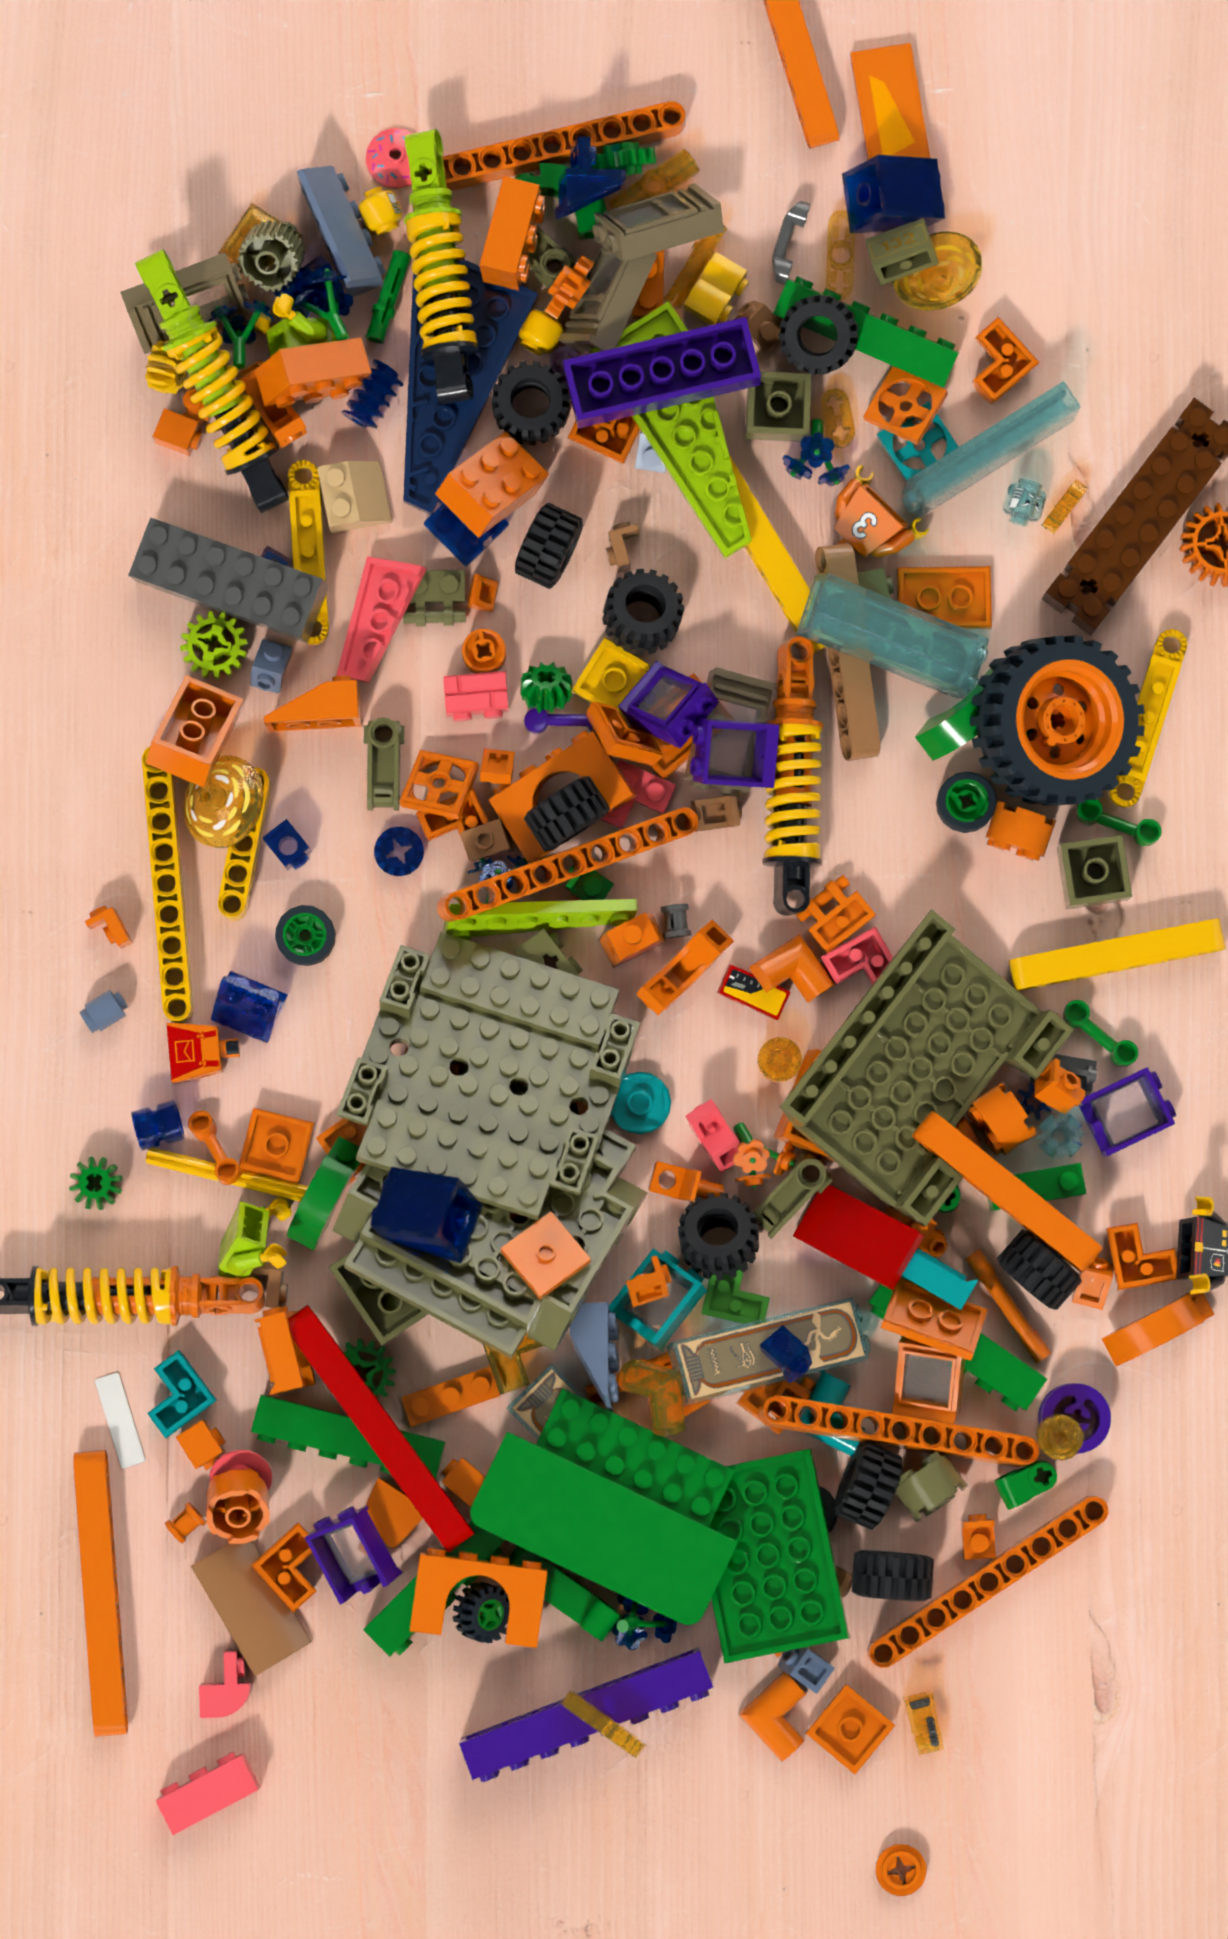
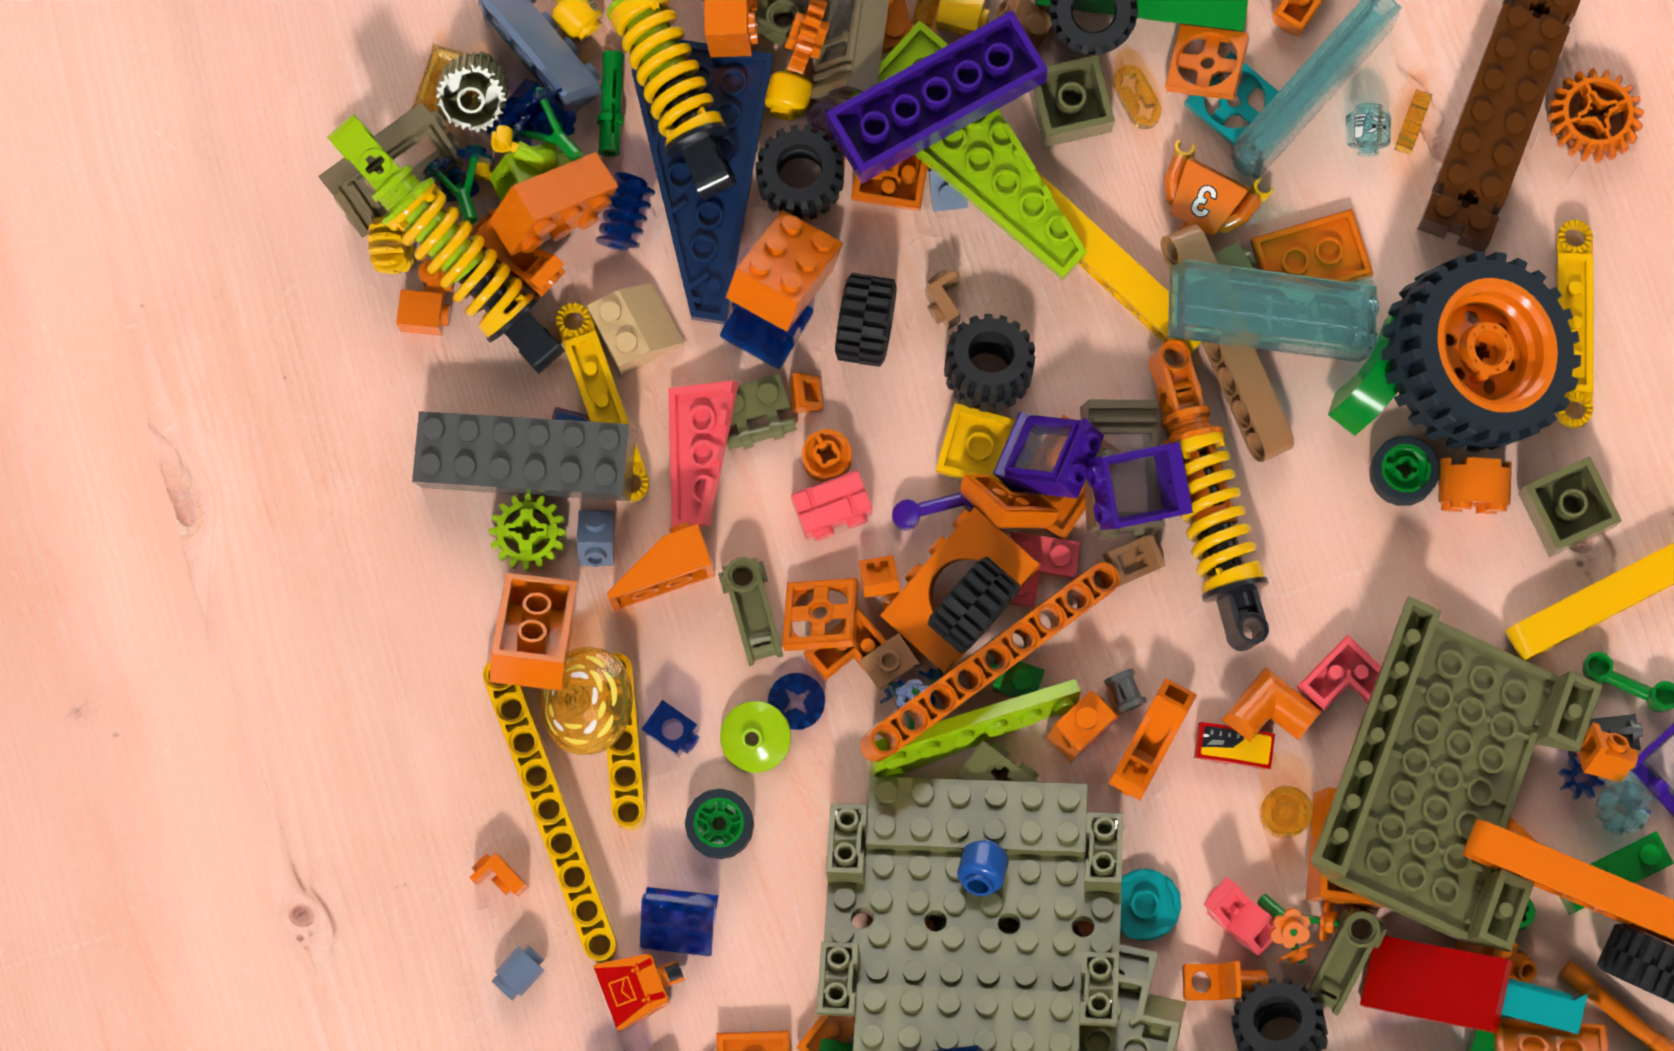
camera: 10 degrees left, 5 degrees down
(370, 868) = (771, 729): none -> lime dish
(509, 1034) = (982, 867): none -> blue head
(546, 687) = (907, 475): green gear -> none
(816, 450) = (1129, 137): clear blue plant -> none
(840, 922) = (1308, 639): orange plate -> none
(1001, 1119) = (1553, 808): orange brick -> none
(1144, 833) = (1610, 450): green bar -> none

